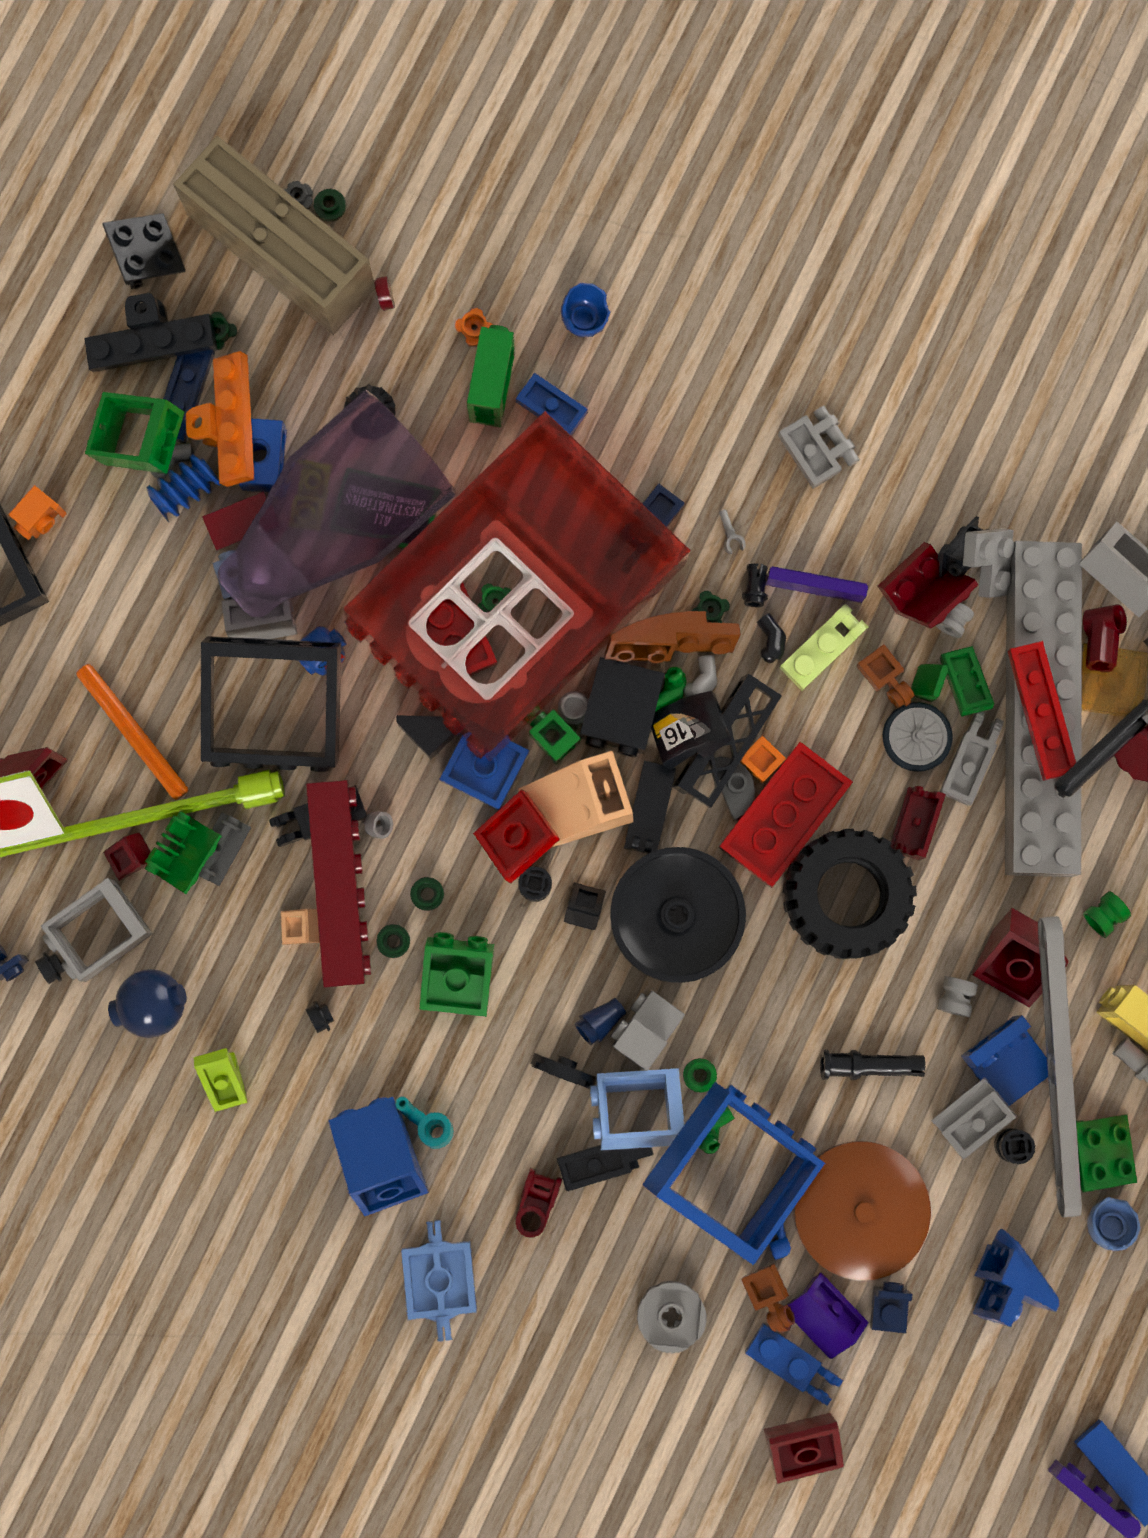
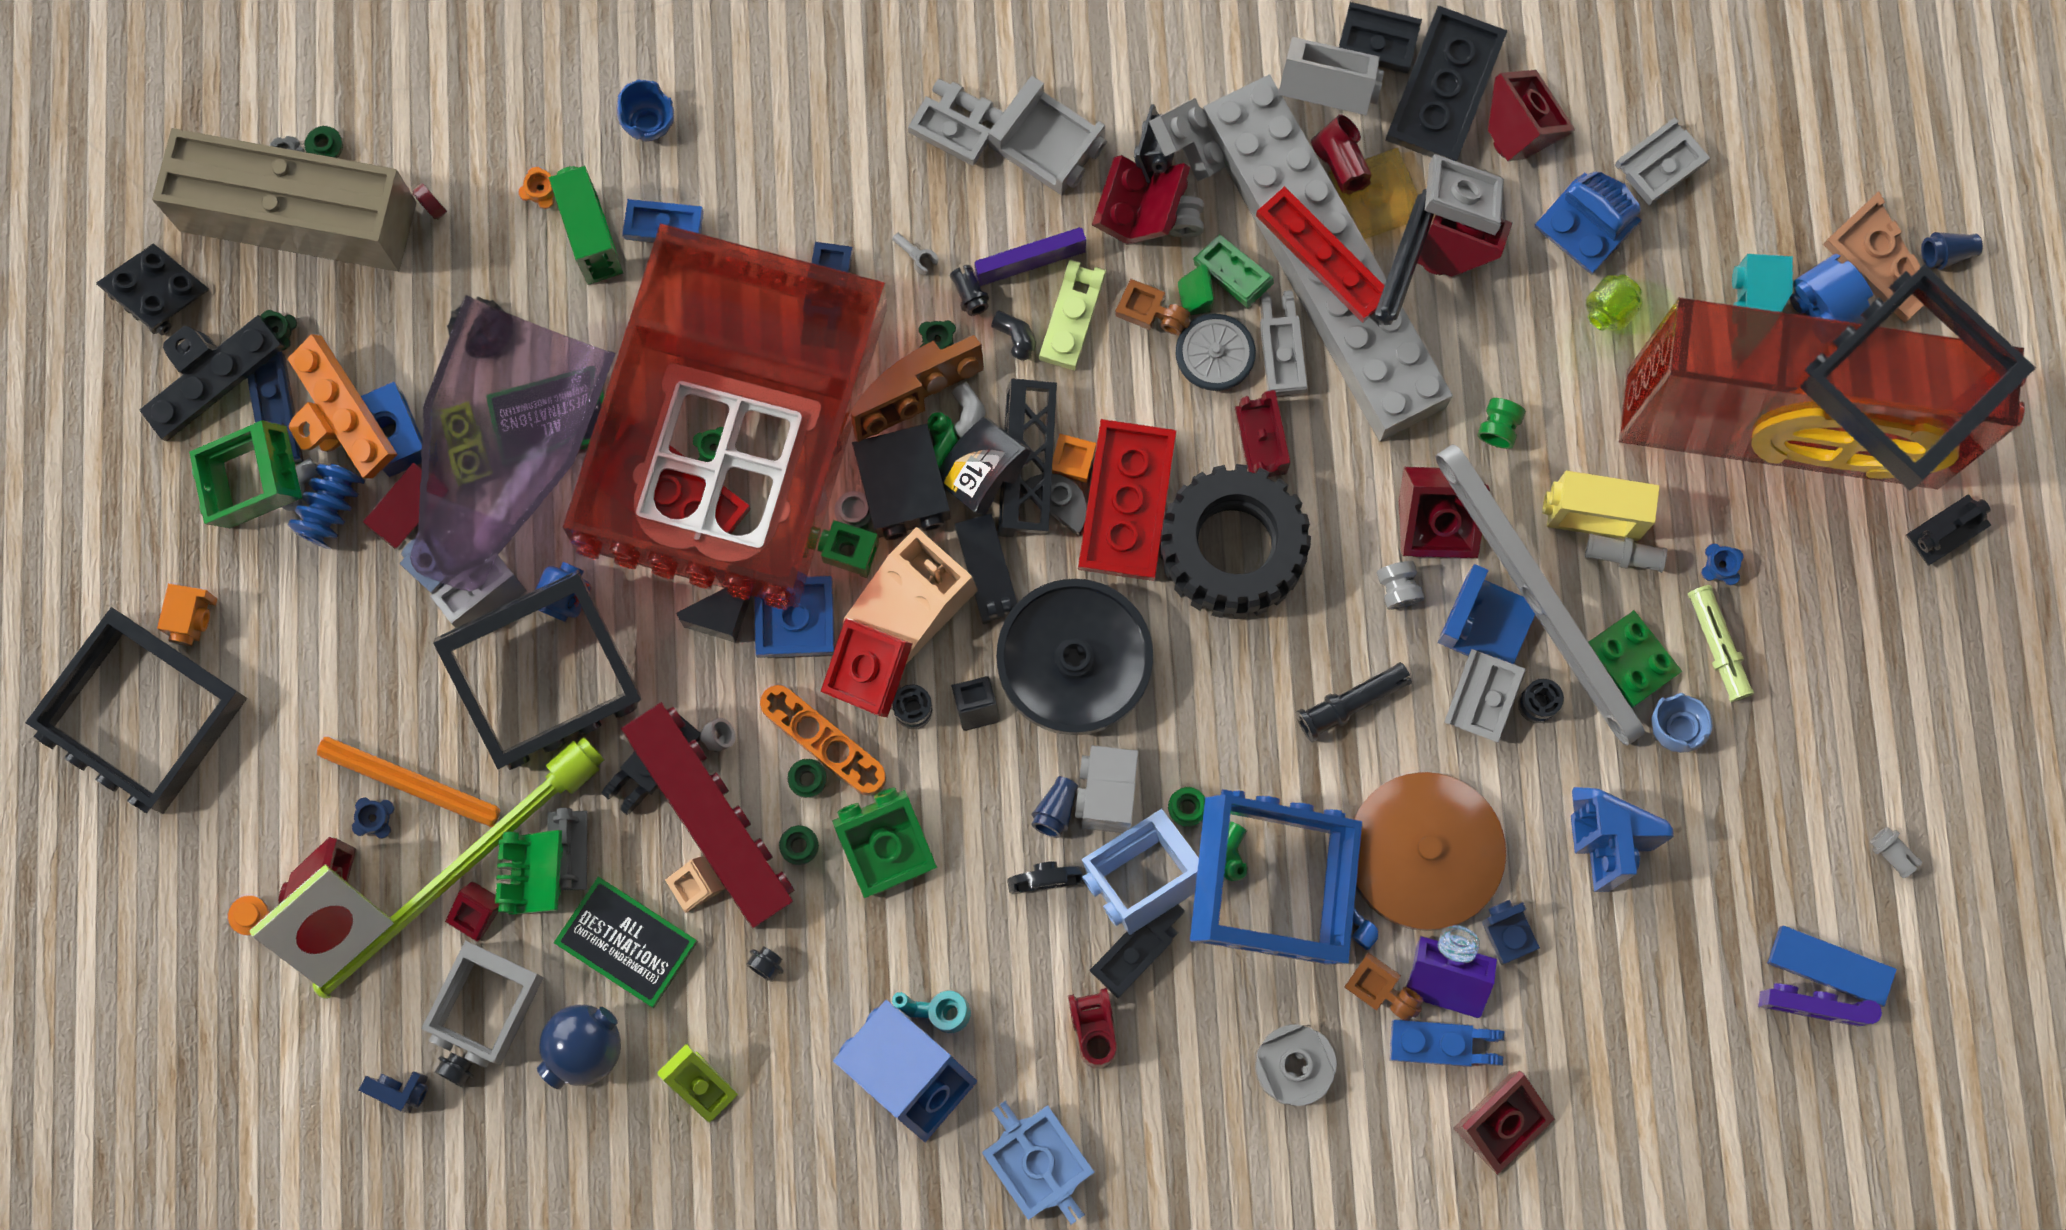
camera: 25 degrees left, 5 degrees down
(90, 734) = (362, 814): none -> dark blue plate
(226, 942) = (625, 942): none -> black tile
(452, 872) = (825, 737): none -> orange beam
(846, 1295) = (1458, 943): none -> clear tile
(881, 497) = (1046, 138): none -> light grey panel

